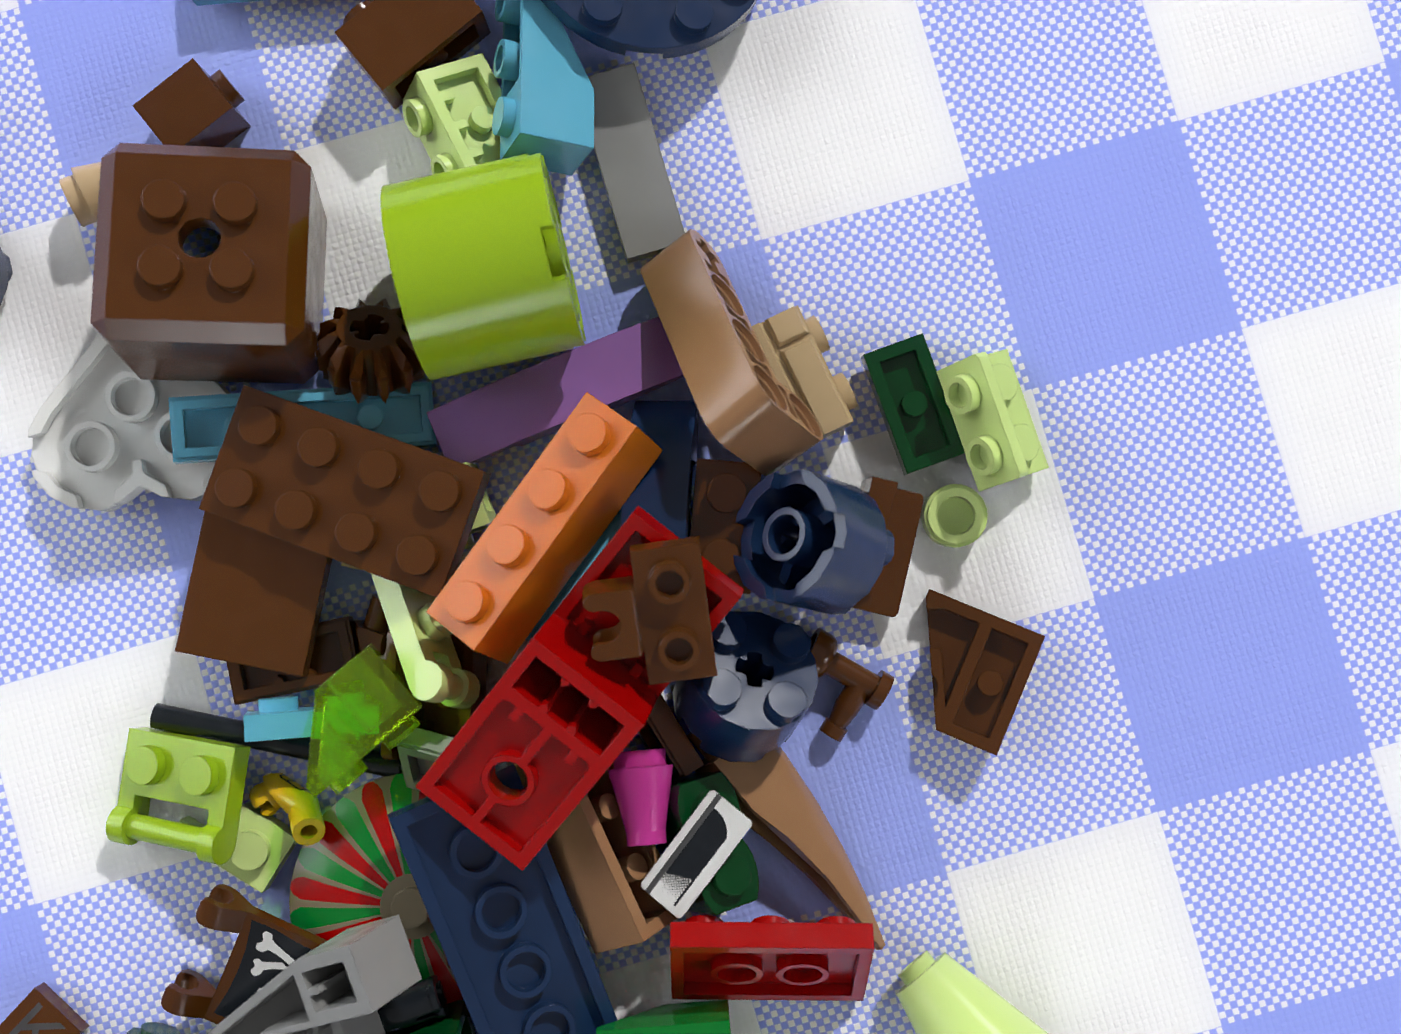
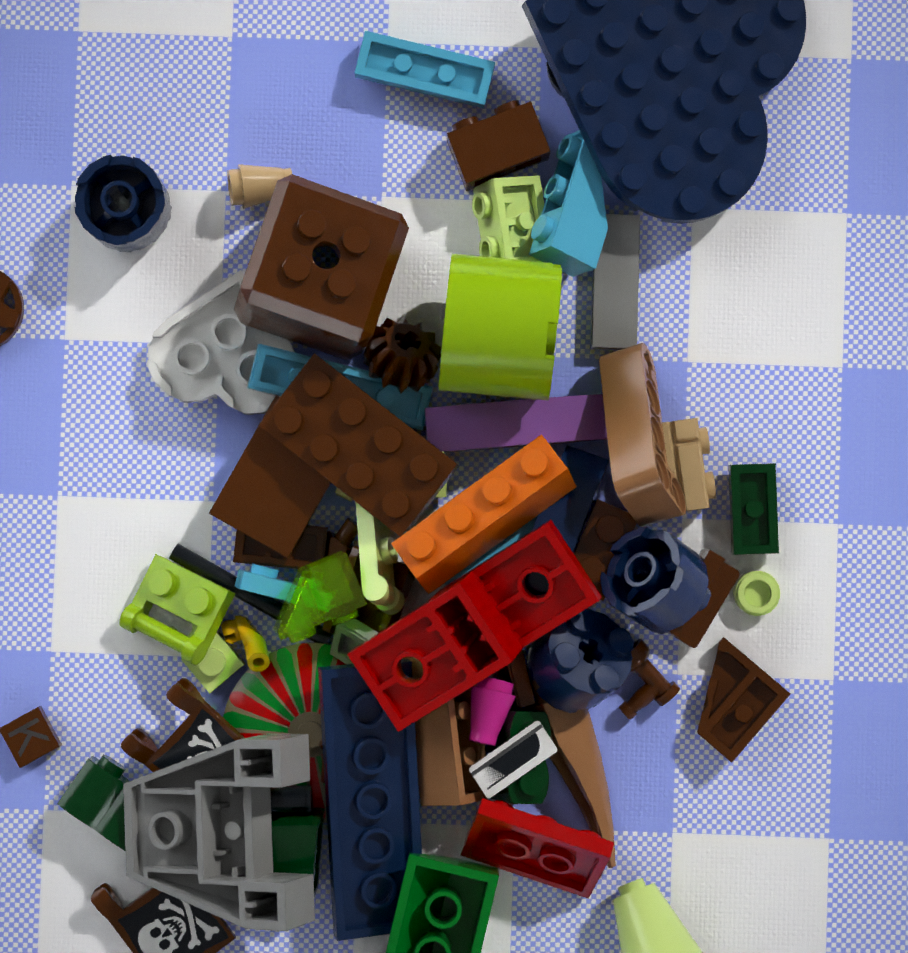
camera: 15 degrees right, 0 degrees up
(194, 108) = (332, 153): reddish brown brick -> none
(659, 612) = (543, 593): reddish brown plate -> none
(992, 418) = (803, 536): yellowish green bracket -> none

